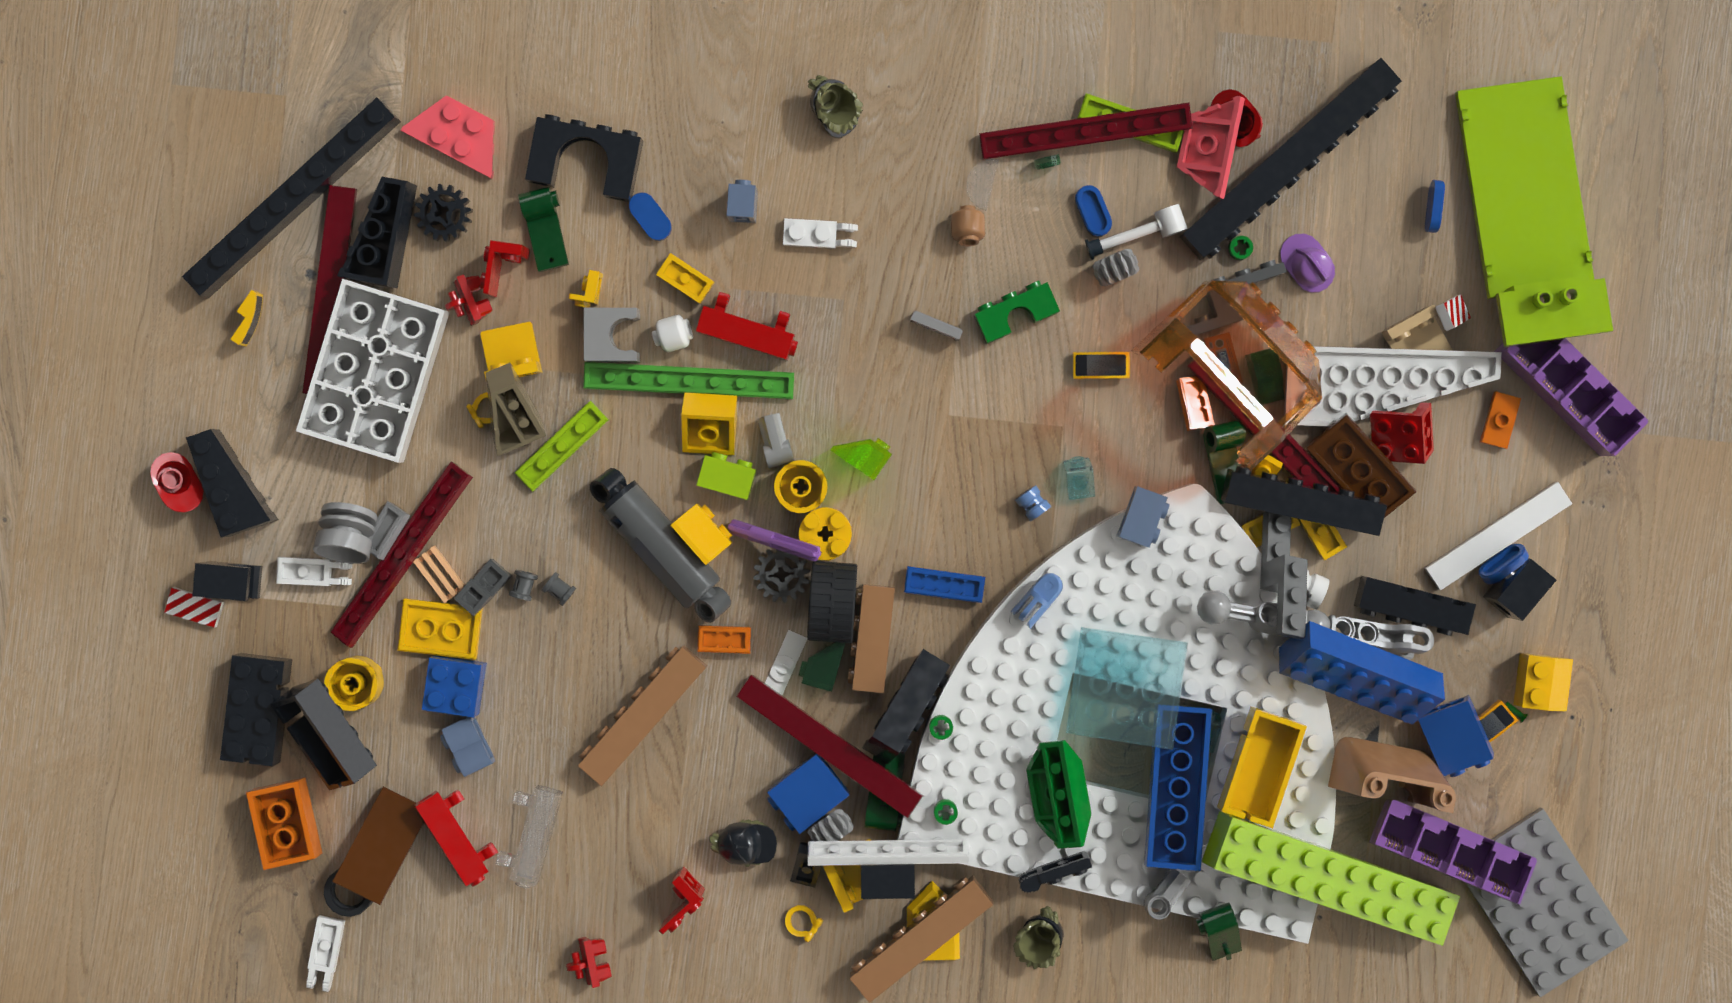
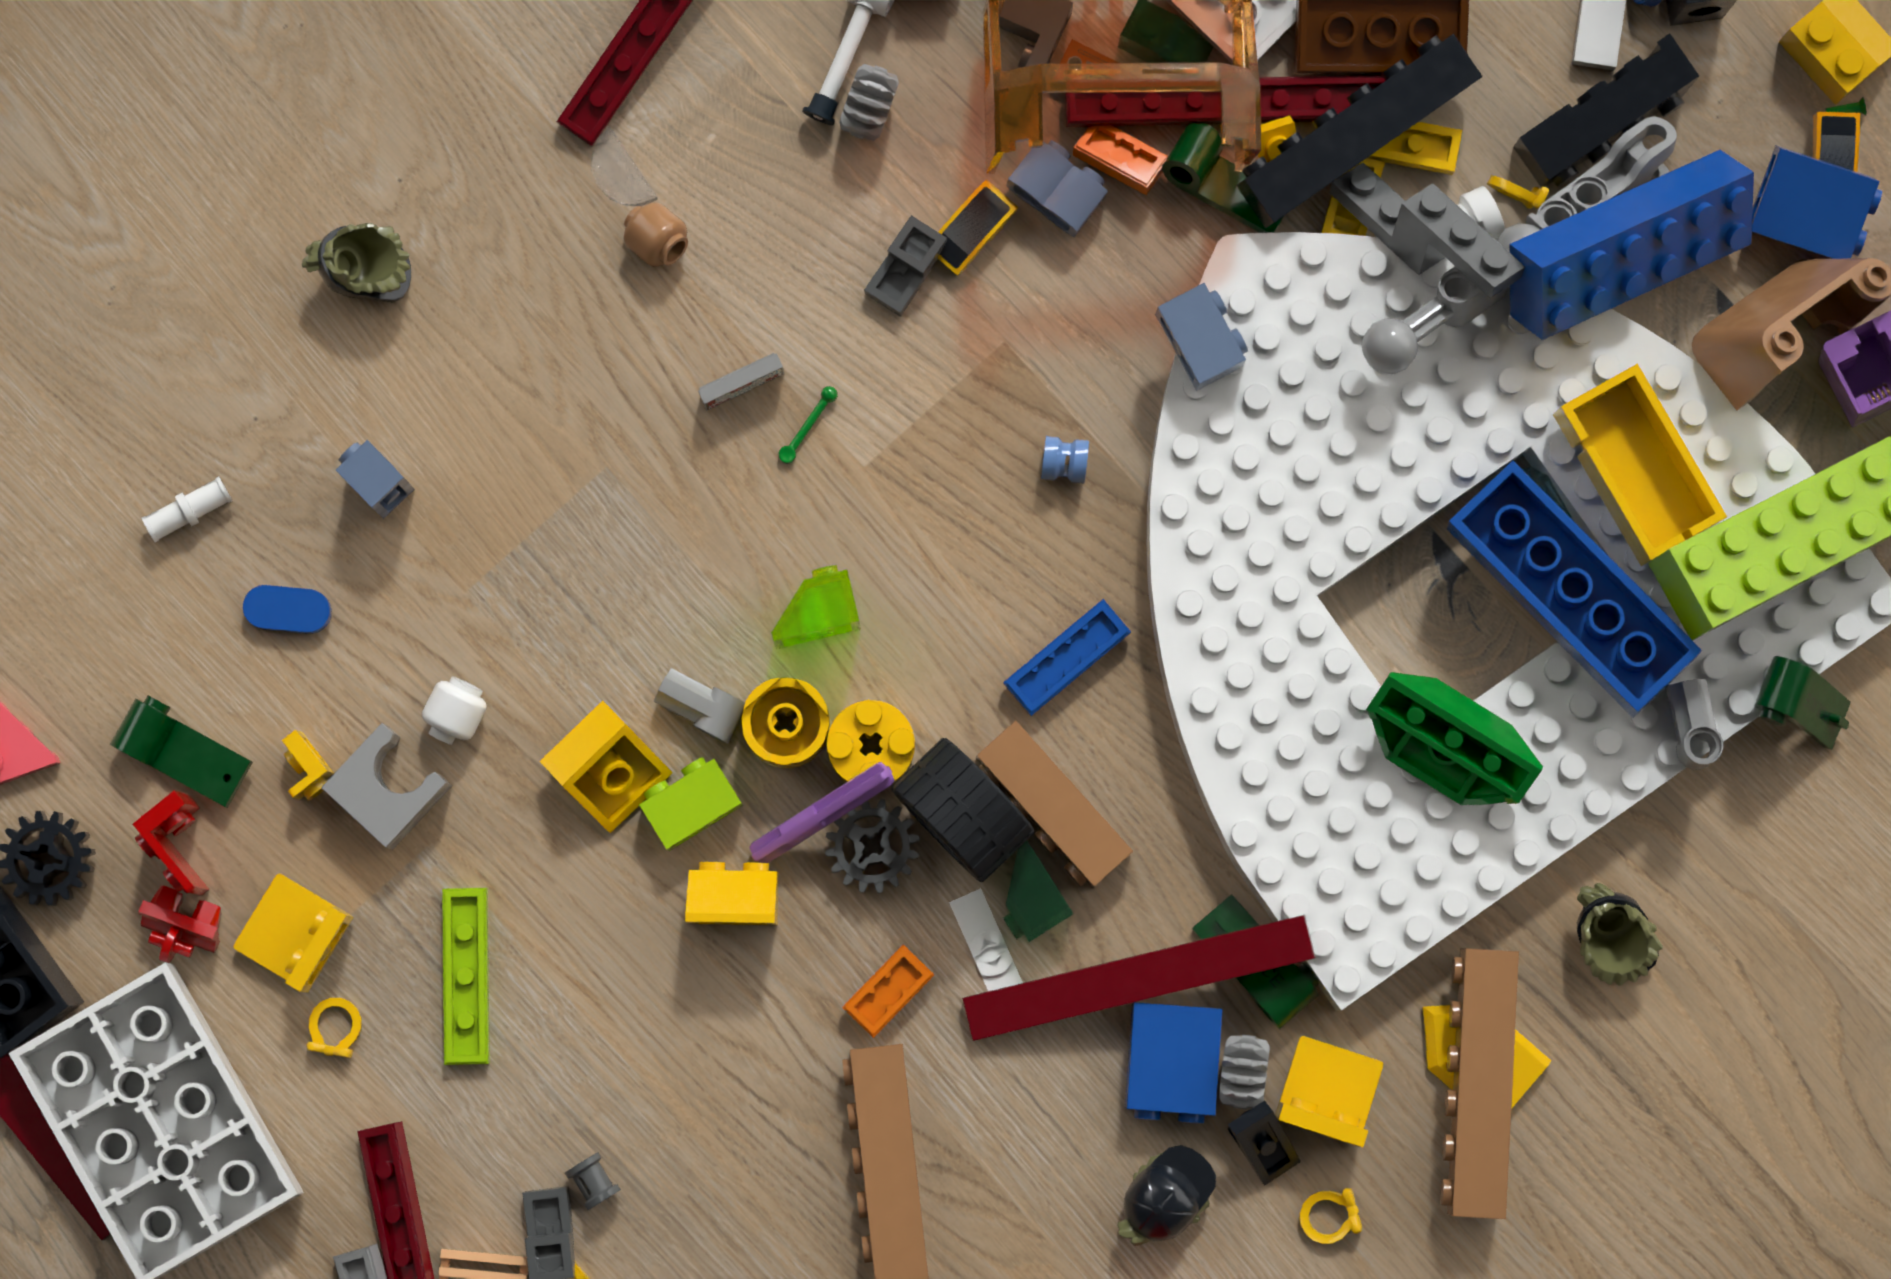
camera: 50 degrees left, 5 degrees down
(512, 412) = (364, 995): dark tan wedge -> none
(553, 137) = (81, 635): black arch -> none
(558, 589) = (638, 1140): dark grey bush -> none
(653, 130) = (186, 509): none -> white pin
(659, 545) = (698, 962): dark grey piece -> none
(685, 278) = (401, 634): yellow plate -> none
(688, 380) = (527, 744): bright green tile -> none
(747, 332) = (537, 619): red brick -> none
(816, 233) = (496, 426): white hinge -> none
(888, 852) = (1335, 1021): white tile -> none
(888, 881) = (1367, 1052): black piece -> none
(907, 707) = (1177, 838): black wedge -> none
(923, 375) = (787, 453): none -> green hinge
(934, 722) = (1252, 812): green bush -> none
(952, 816) = (1363, 903): green bush -> none
(1037, 301) = (822, 234): green arch -> none
(1045, 592) = (1185, 536): medium blue arm -> none
(1047, 162) = (666, 71): clear green tile -> none
(1054, 871) = (1544, 836): black hinge -> none
(1056, 351) = (906, 265): none -> dark grey slope
(1079, 478) = (1086, 376): clear light blue bracket -> none
(1093, 211) = (776, 70): blue tile -> none
(1127, 688) = (1394, 541): clear light blue tile -> none
(1154, 388) = (1058, 187): none -> sand blue brick
(1345, 607) = (1529, 199): none -> yellow piece

